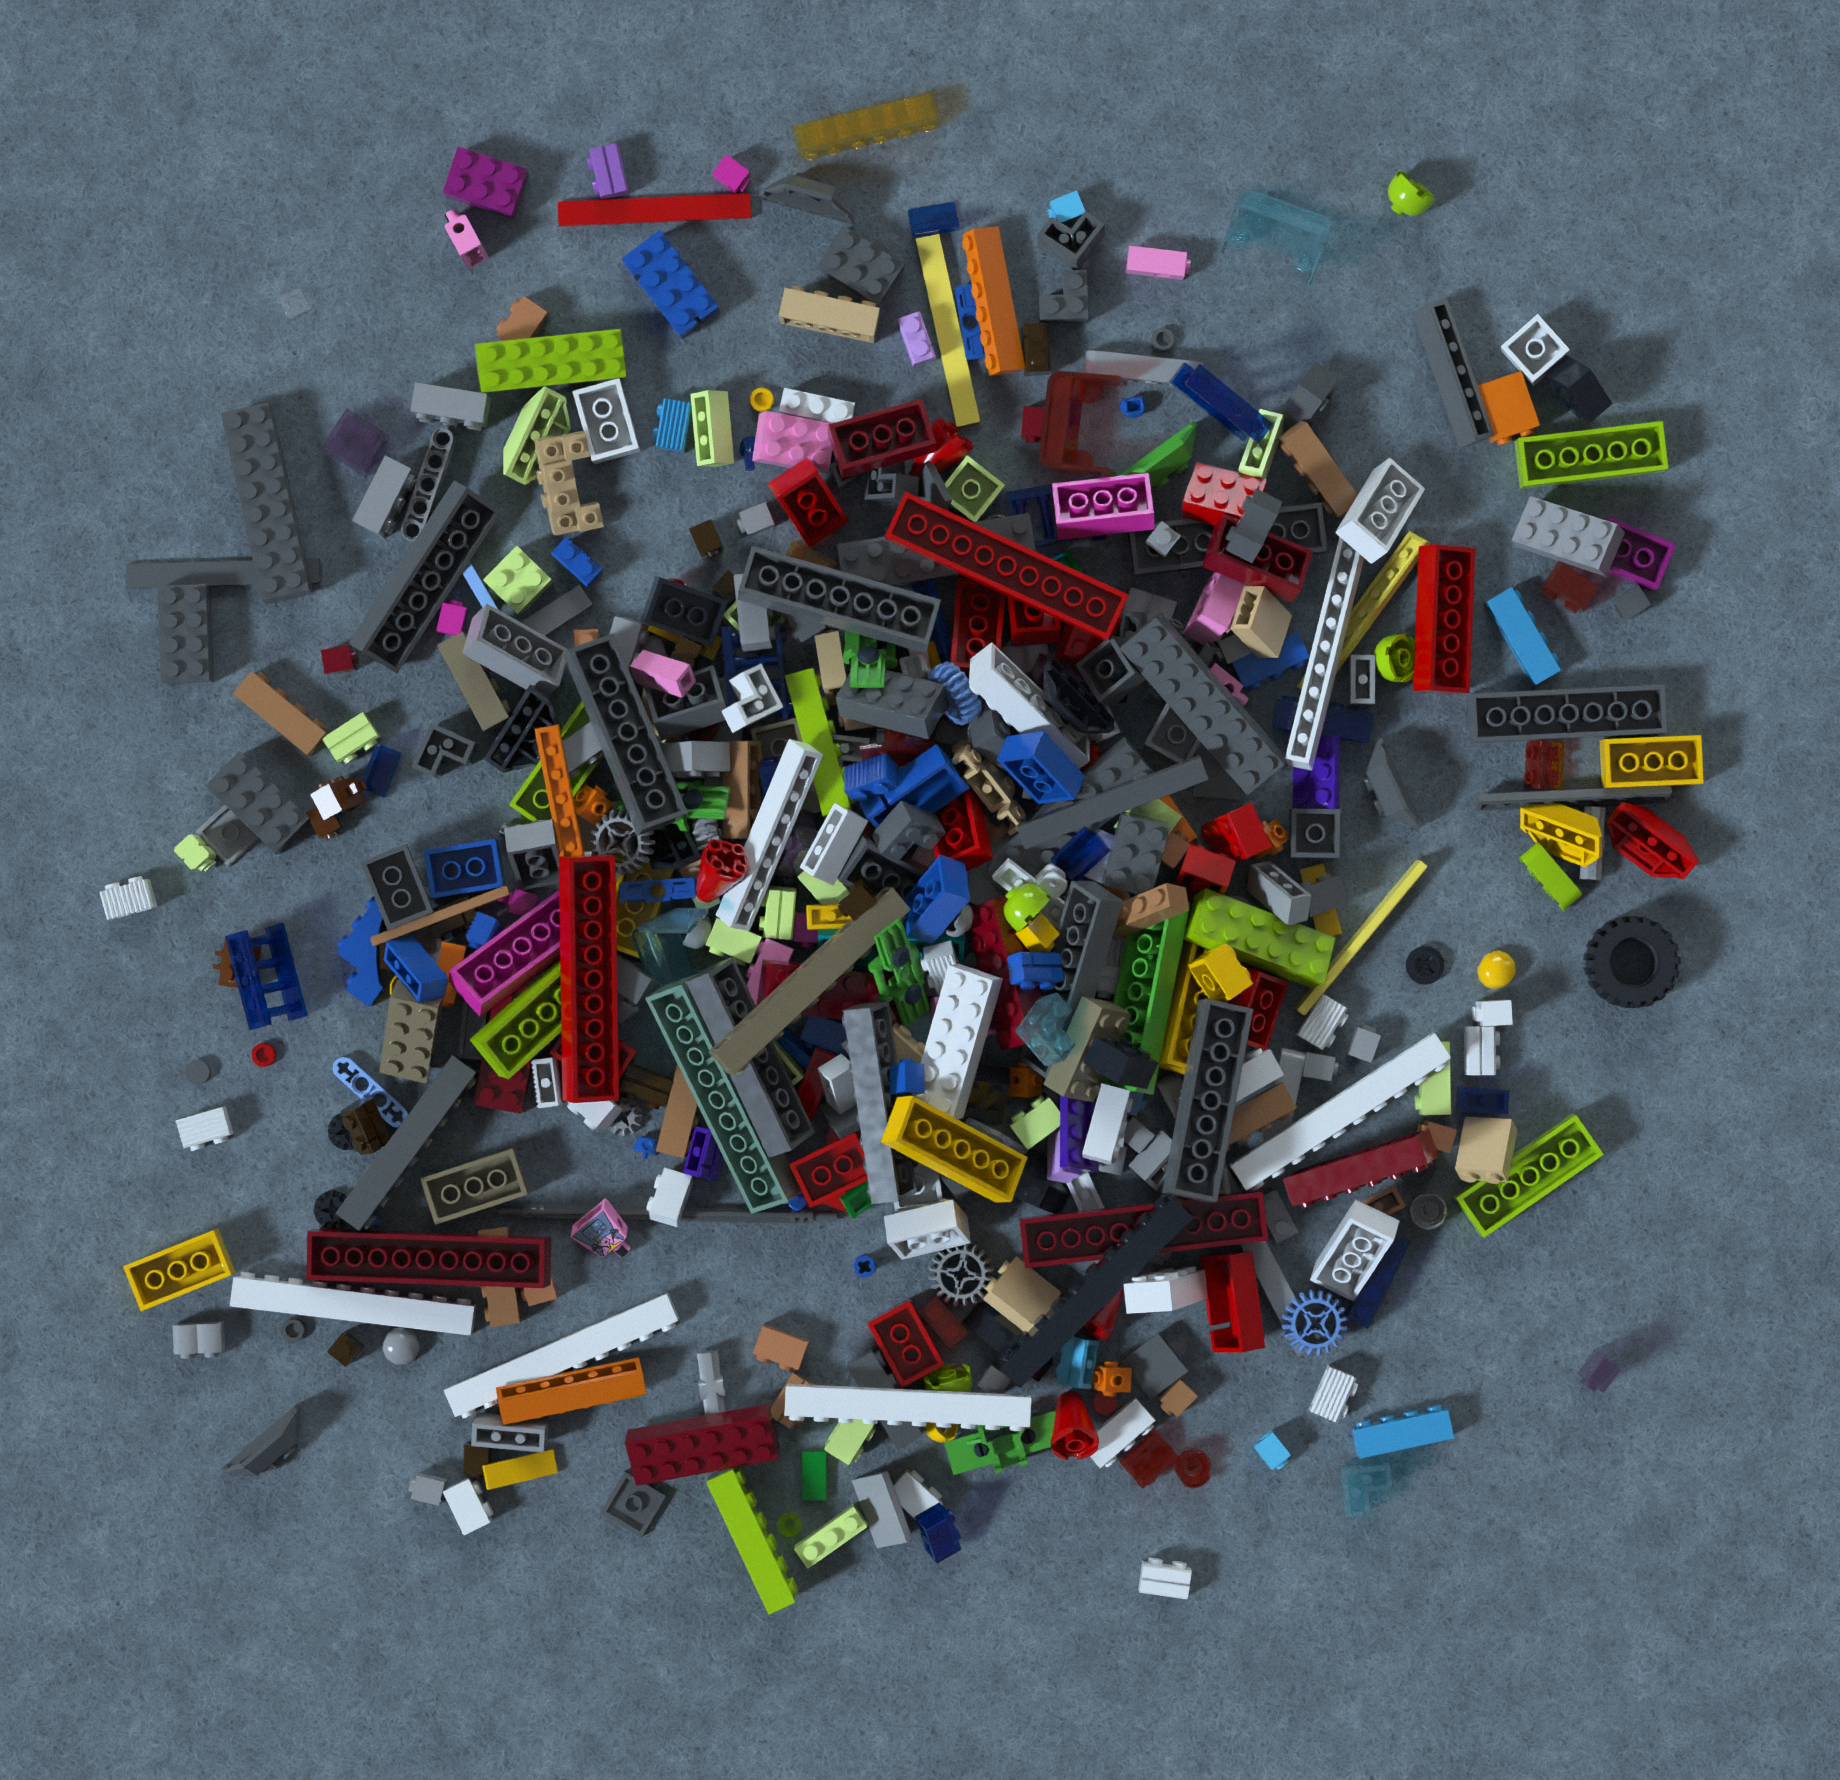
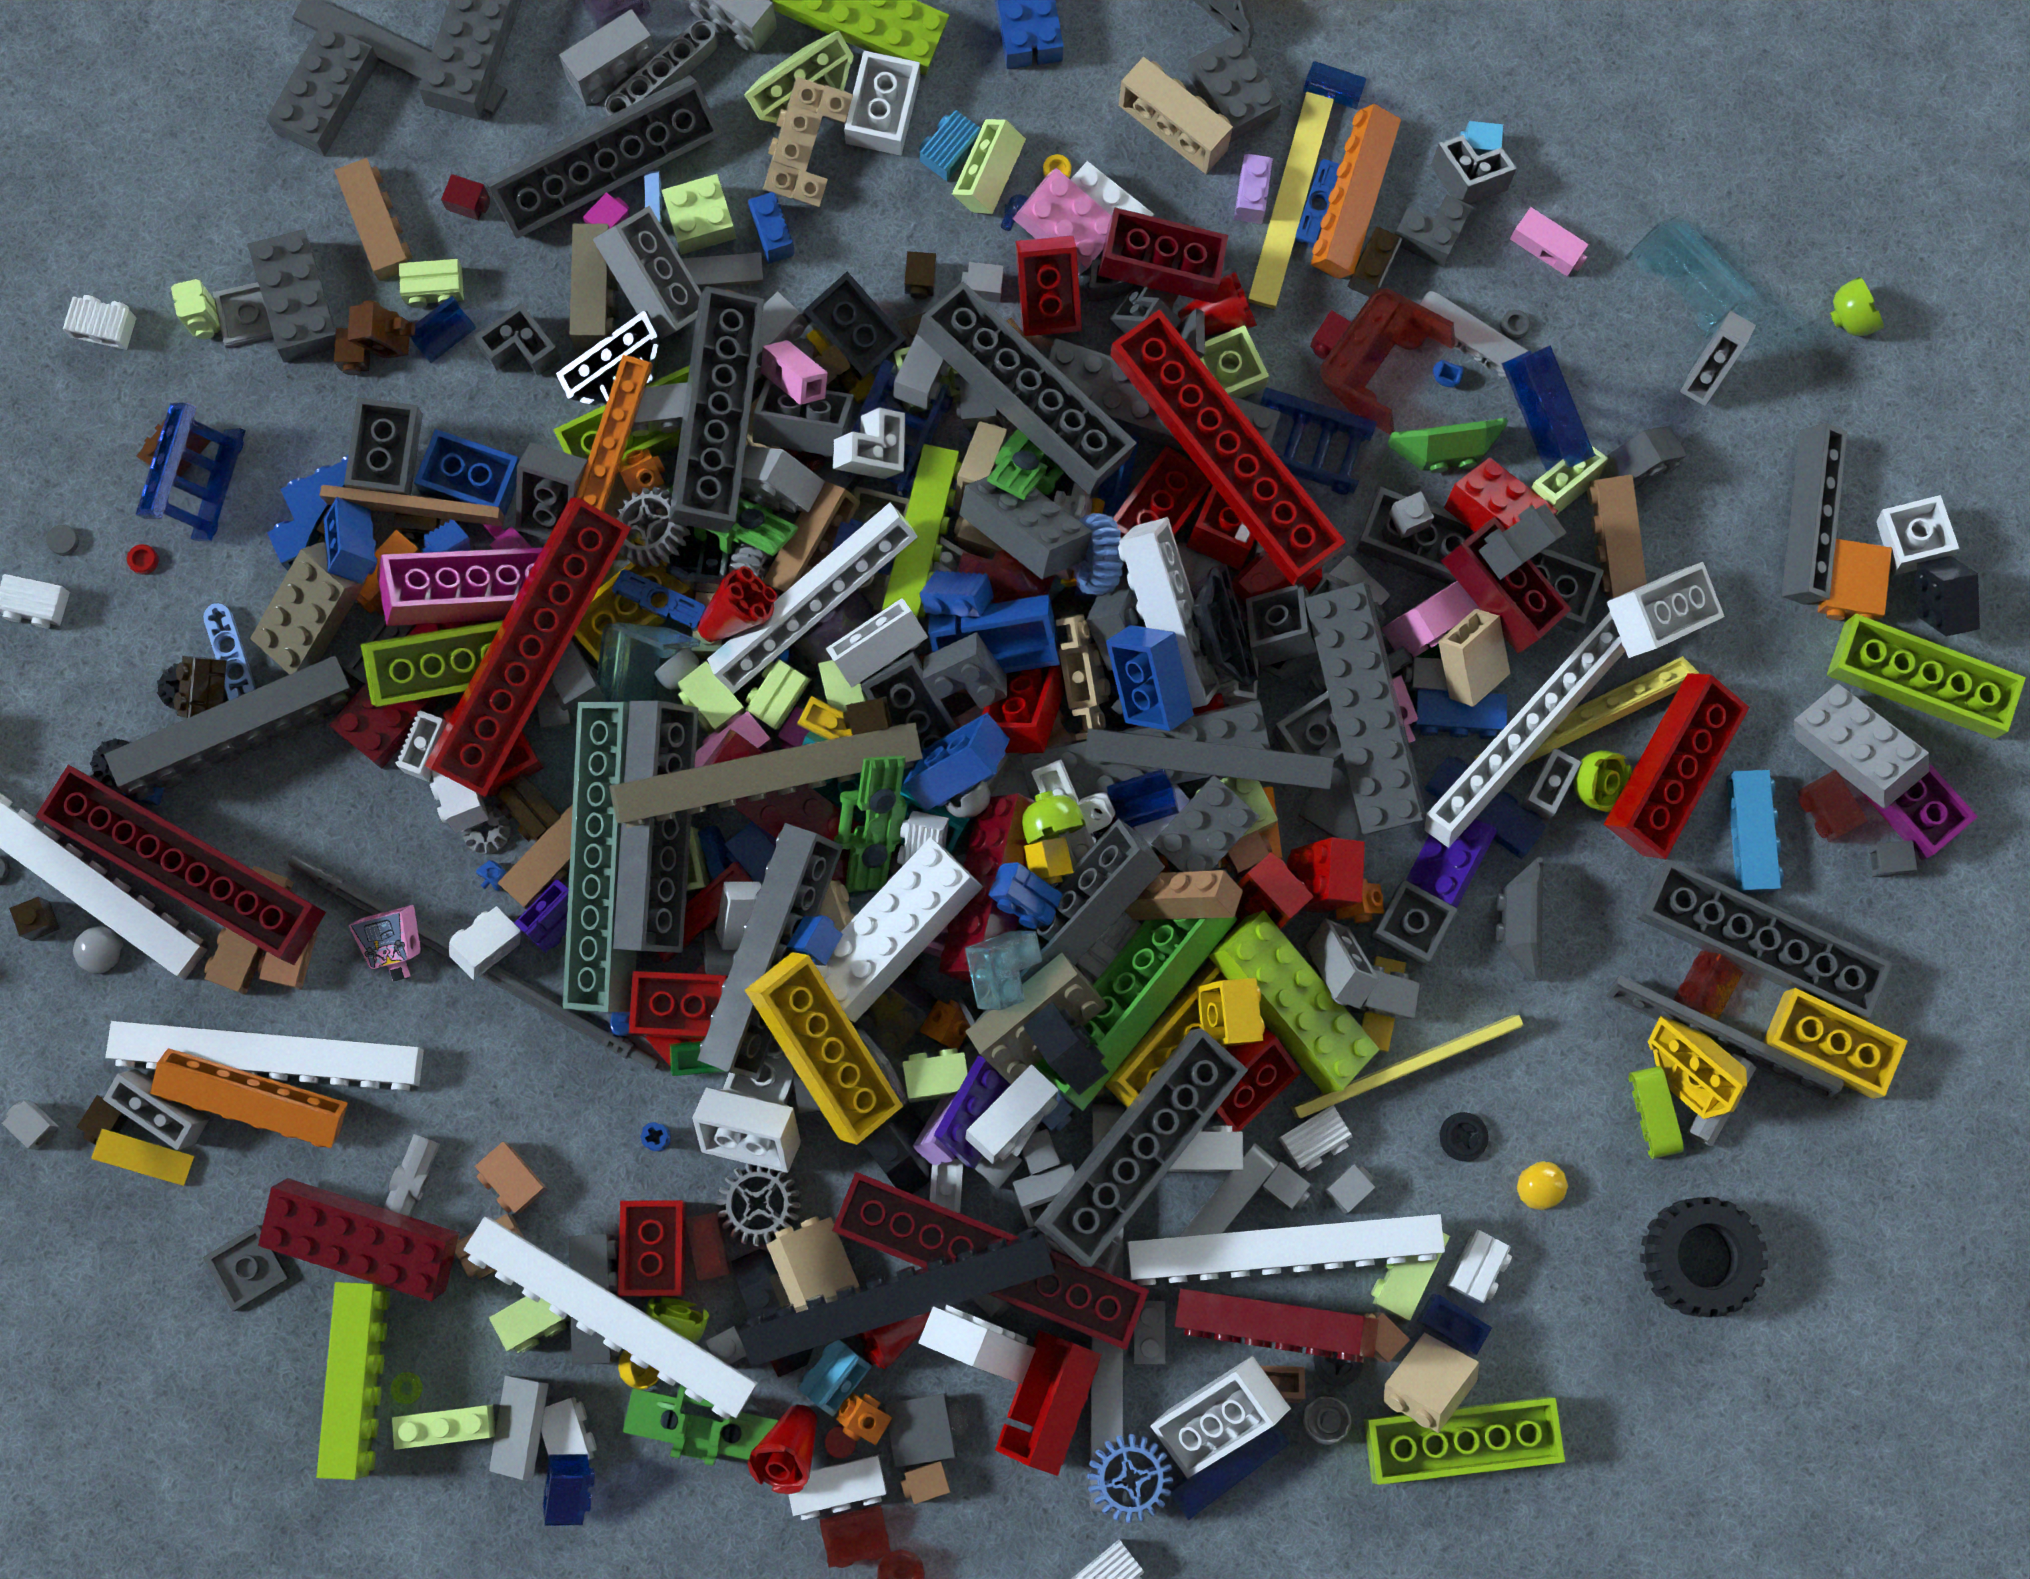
camera: 20 degrees right, 10 degrees down
(468, 1505) = (62, 1167): white brick -> none
(475, 1185) = (280, 815): dark tan brick -> none
(813, 1475) = (466, 1346): green tile -> none
(1103, 506) = (1363, 449): dark pink brick -> none
(1259, 1113) = (1190, 1200): medium nougat brick -> none
(1325, 295) = (1717, 358): none -> light grey brick
(1492, 1013) = (1516, 1229): white brick -> none
(1650, 842) = (1788, 1133): red wedge -> none

